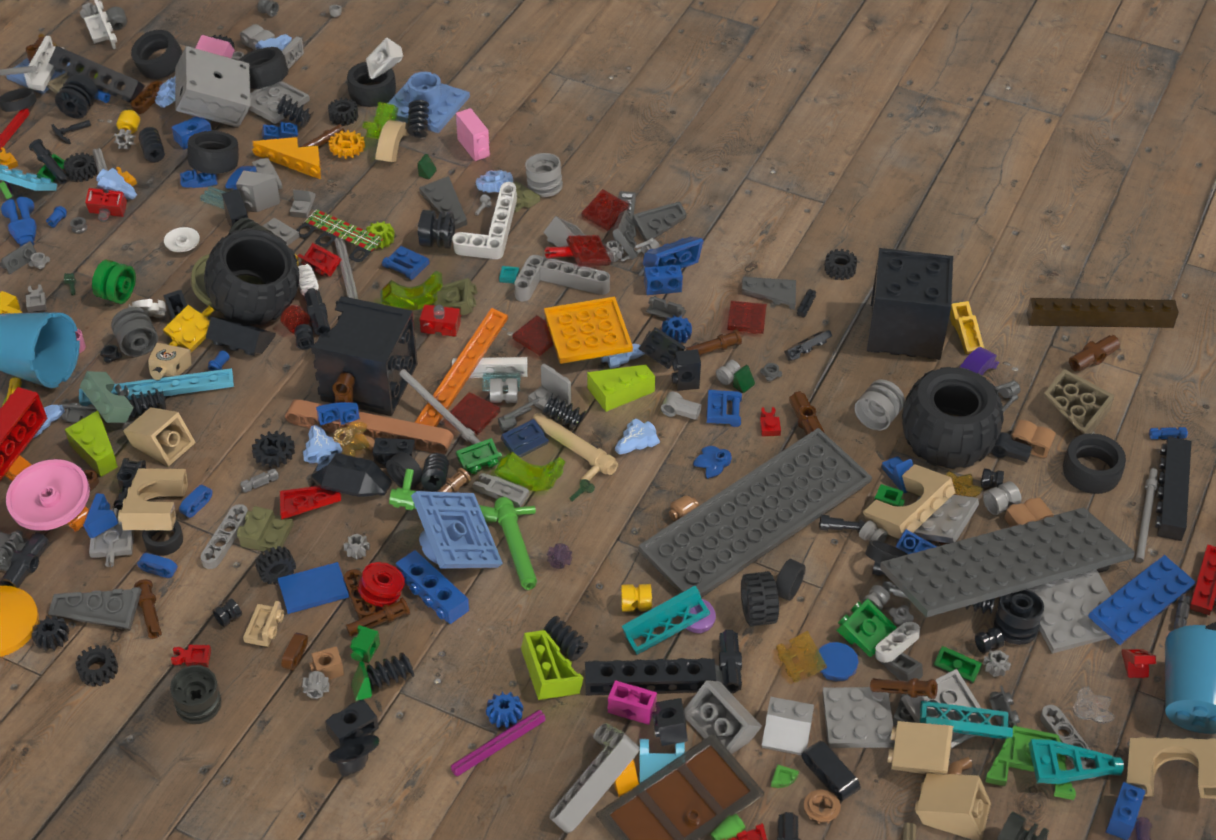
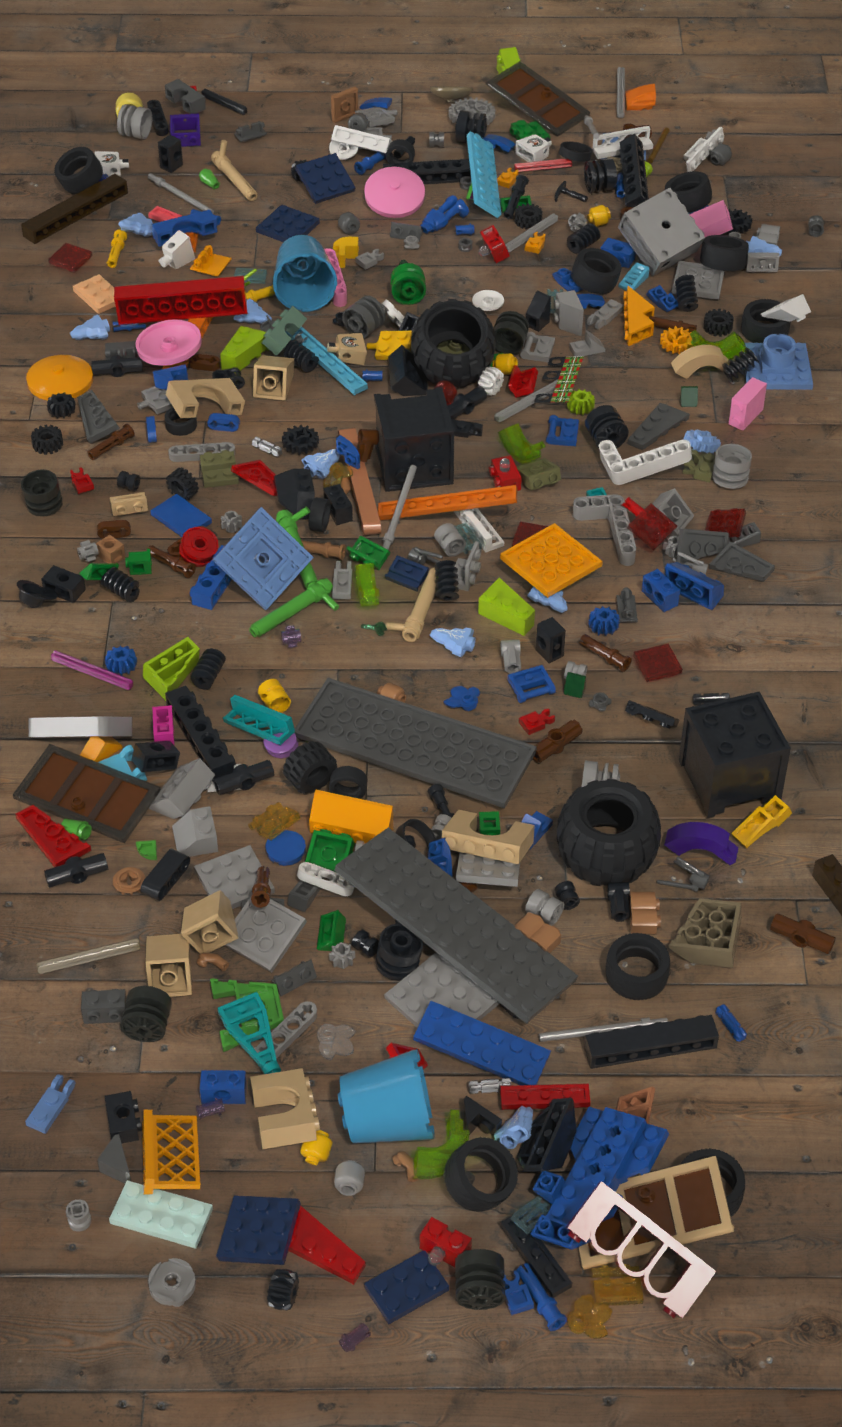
camera: 65 degrees right, 0 degrees up
(113, 181) = (518, 237): light blue rock -> none
(233, 129) = (635, 276): none -> medium azure slope
(435, 472) = (329, 531): black piece -> none
(475, 412) = (415, 533): clear red tile -> none
(660, 347) = (568, 614): black bracket -> none
(777, 290) = (711, 670): dark grey wing -> none
(837, 594) = (349, 815): none -> light orange slope
(840, 257) = (785, 698): black tyre -> none
(963, 725) = (247, 944): teal fence -> none
(964, 485) = (545, 876): clear yellow plate -> none

